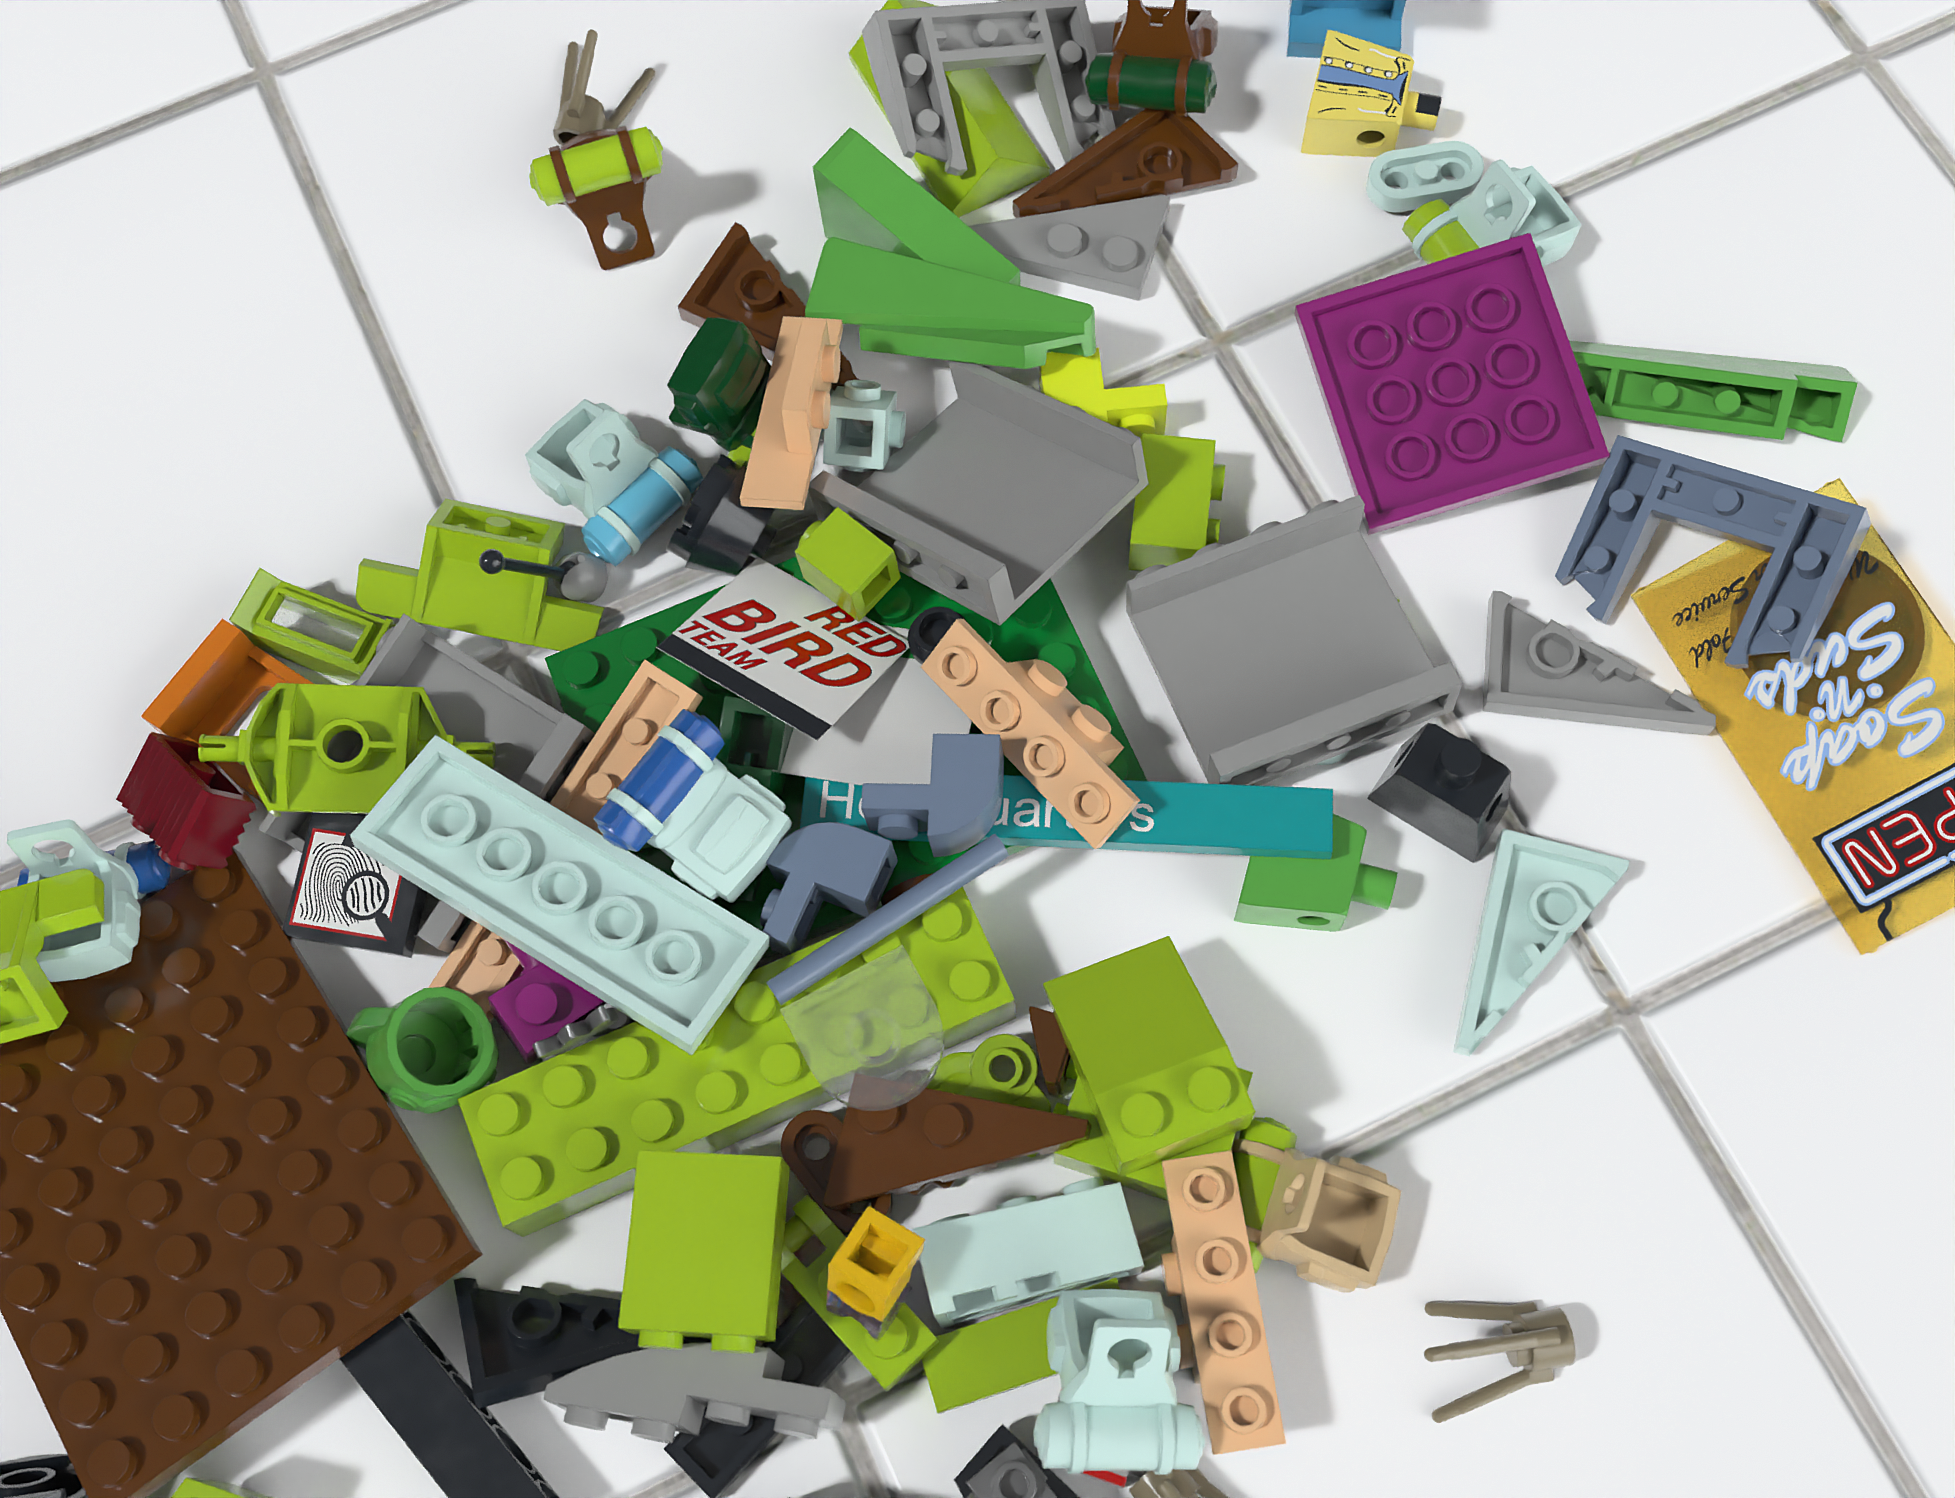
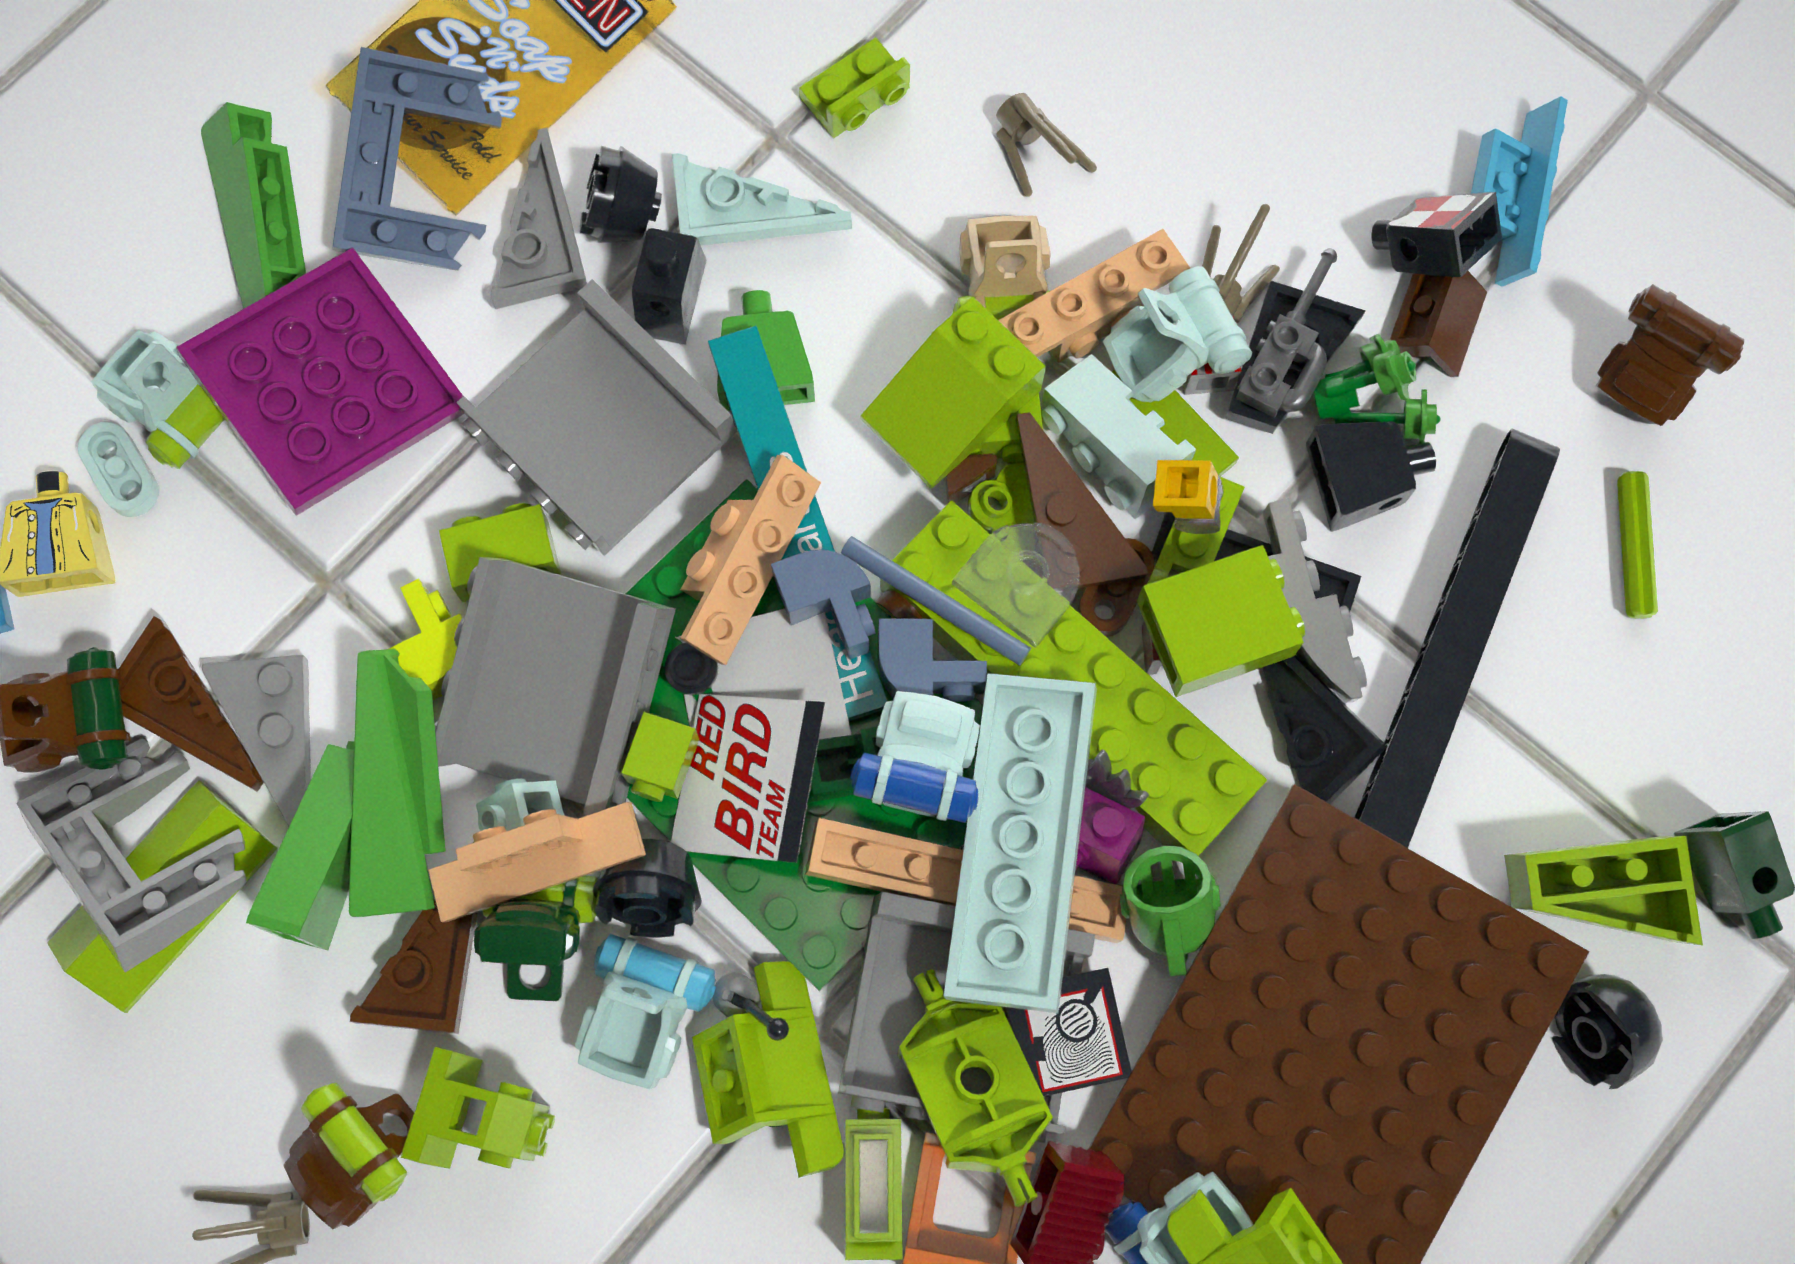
camera: 120 degrees left, 5 degrees up
(560, 321) = (509, 1124): none -> lime tile
(1581, 770) = (620, 197): none -> black cone
(1663, 1138) = (856, 87): none -> lime bracket

